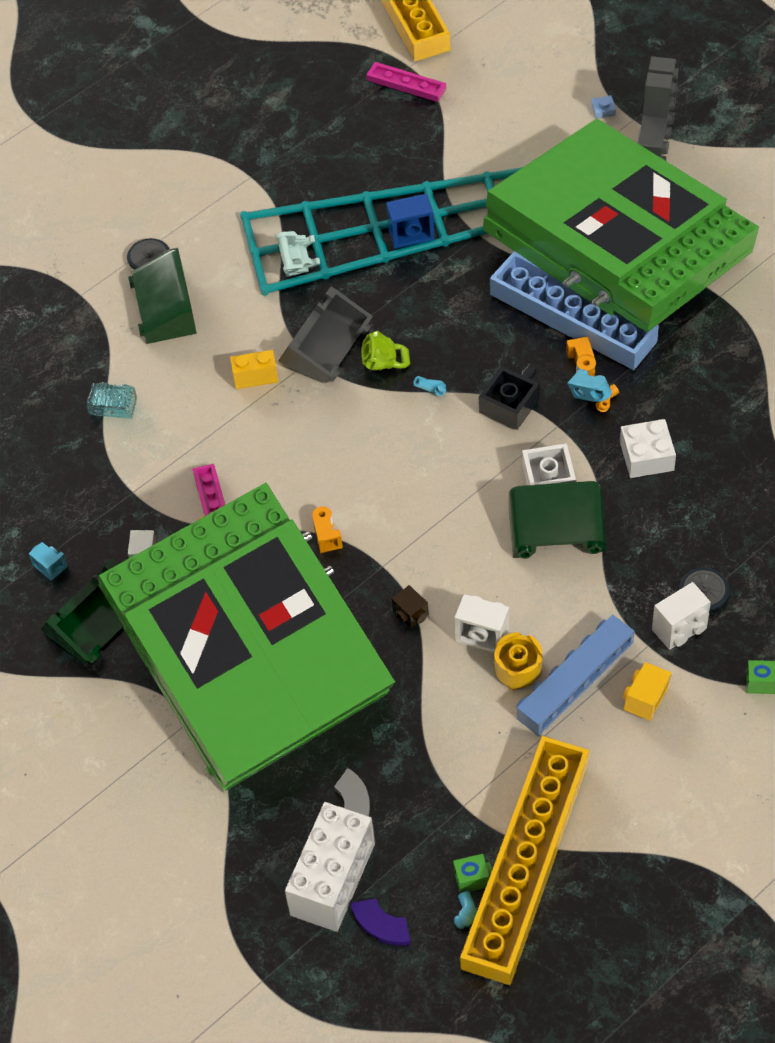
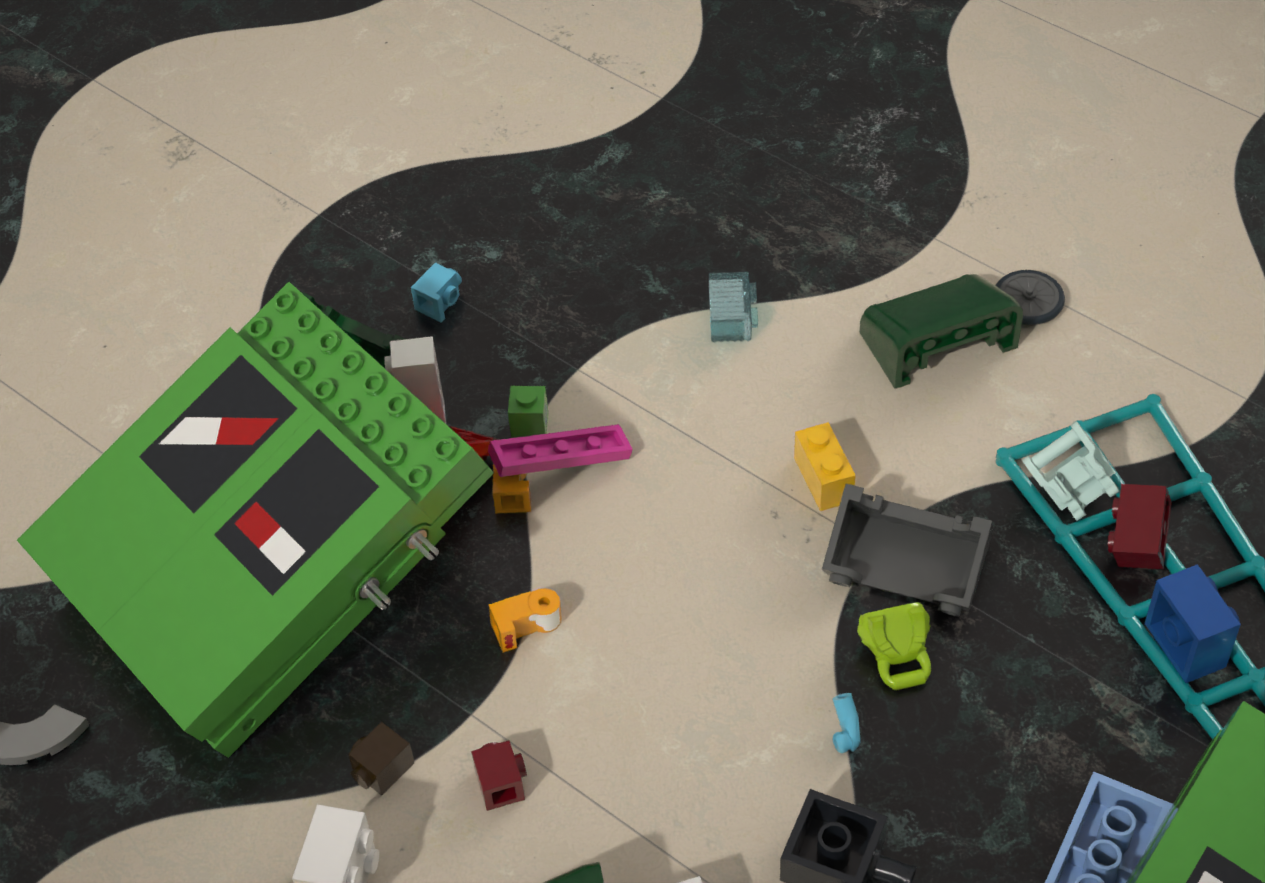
camera: 80 degrees right, 5 degrees down
(170, 514) = (527, 411): none -> bright green brick
(336, 233) = (1140, 526): none -> dark red brick
(431, 549) = (499, 774): none -> dark red brick

